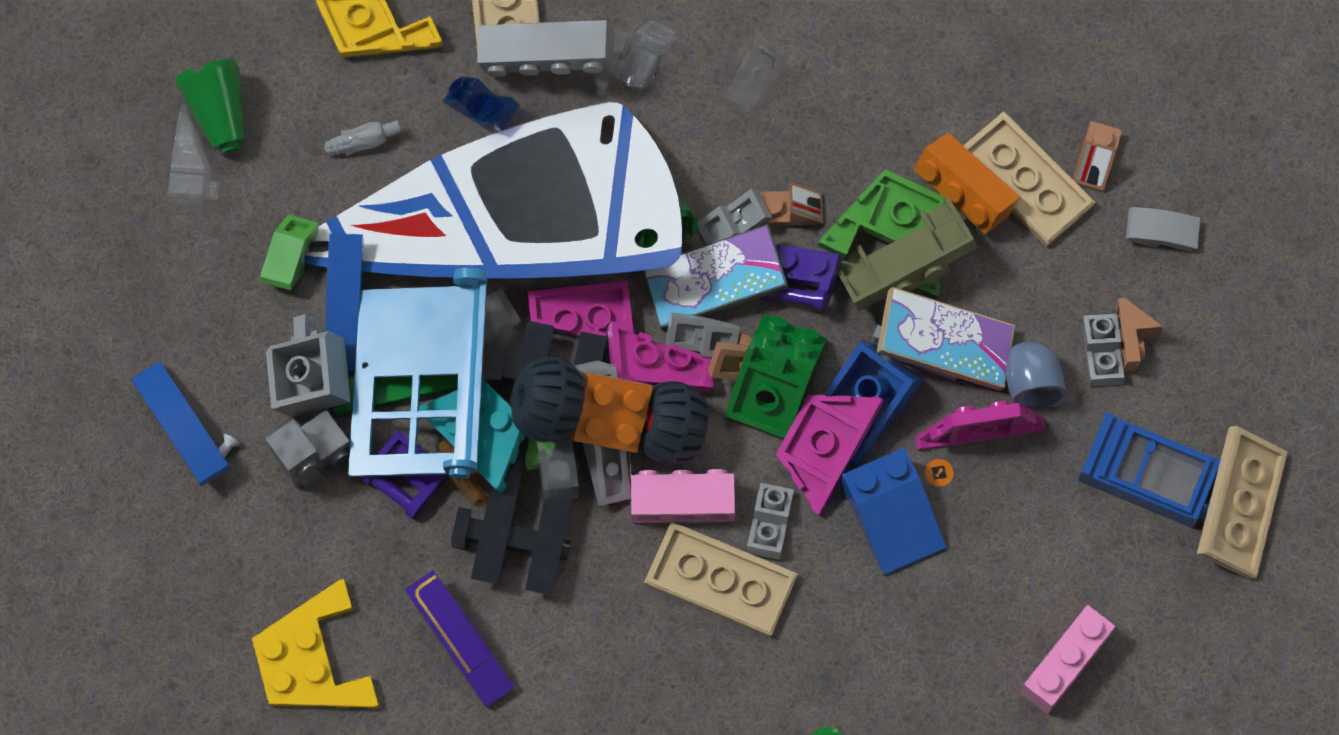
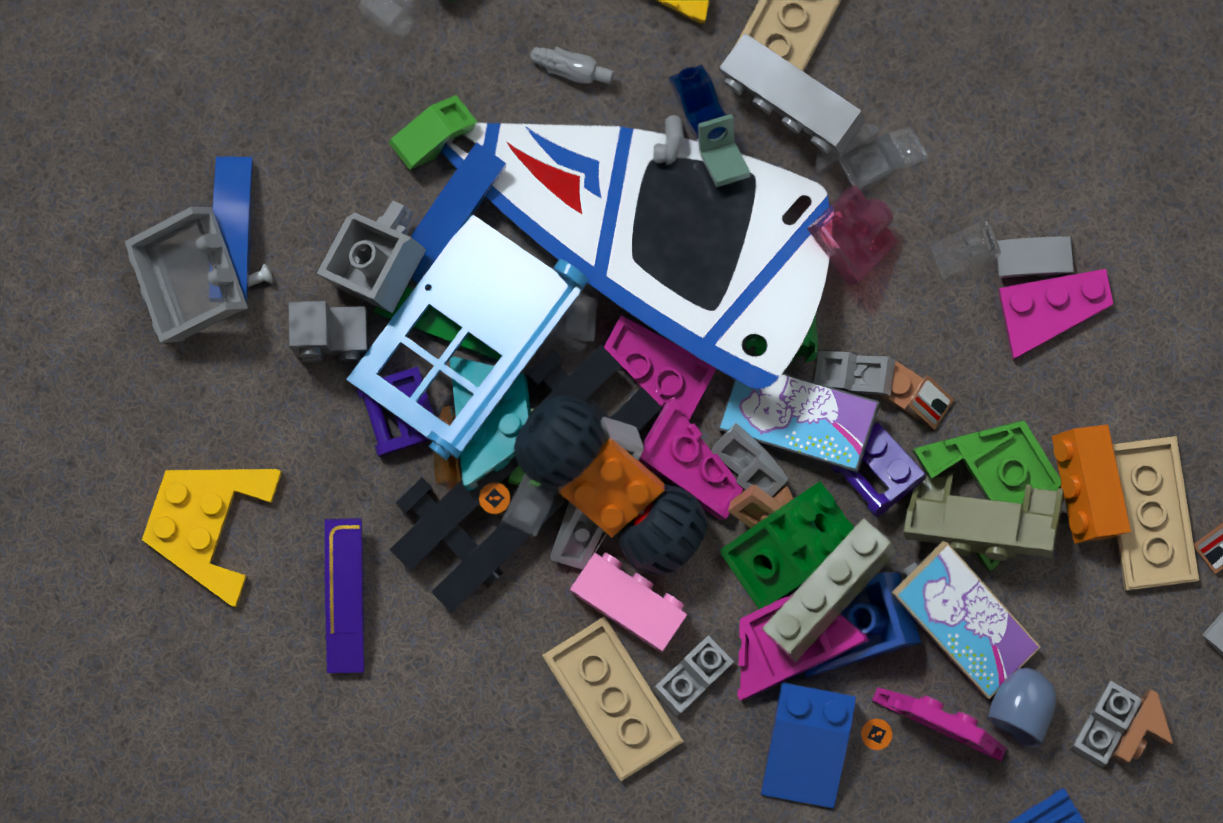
camera: 30 degrees right, 10 degrees up
(167, 477) = (185, 274): none -> window
(477, 137) = (674, 139): none -> light grey arm
(521, 126) = (721, 154): none -> sand green bracket
(525, 486) = (494, 498): none -> orange sticker
(663, 117) = (854, 233): none -> clear pink plate
(808, 51) = (1035, 257): none -> light grey slope
(829, 379) = (829, 590): none -> brick
(844, 81) = (1049, 307): none -> dark pink wing

